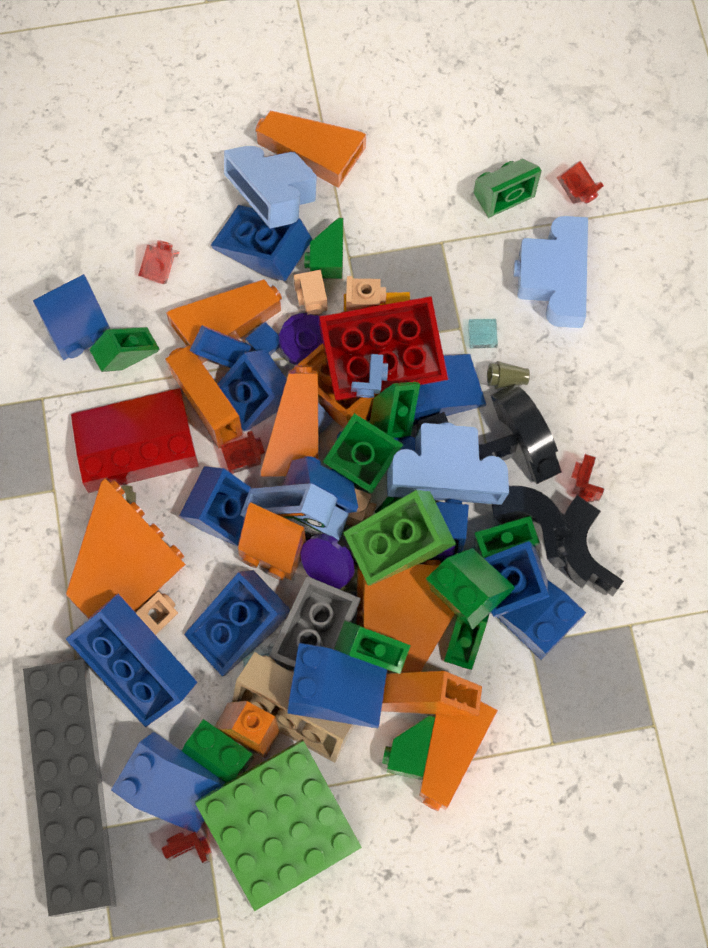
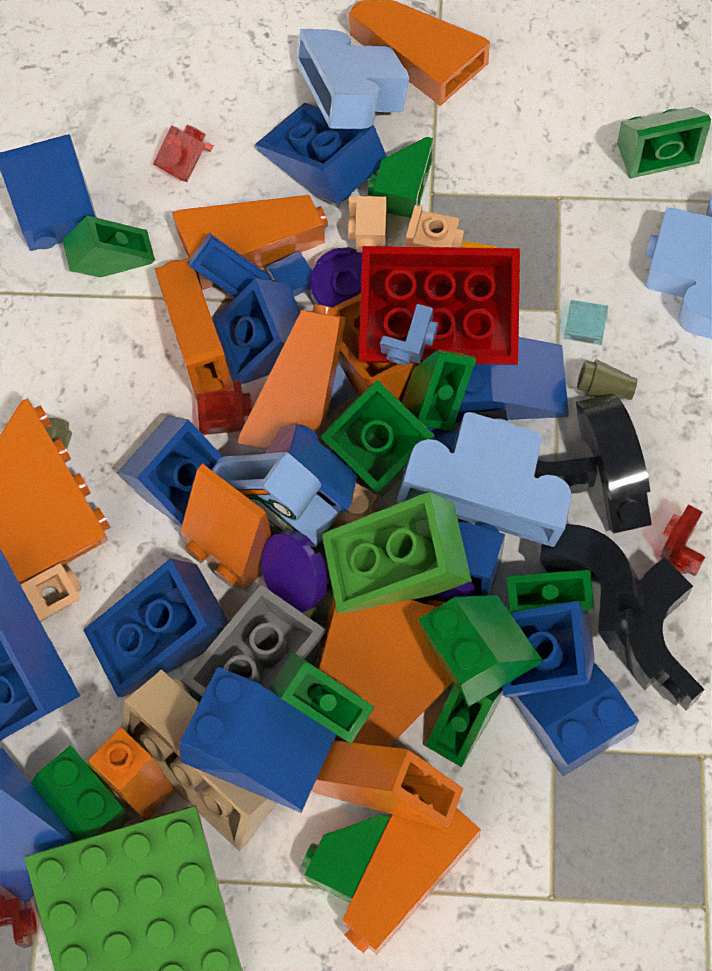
camera: 20 degrees right, 5 degrees down
(133, 440) = (89, 366): red slope -> none

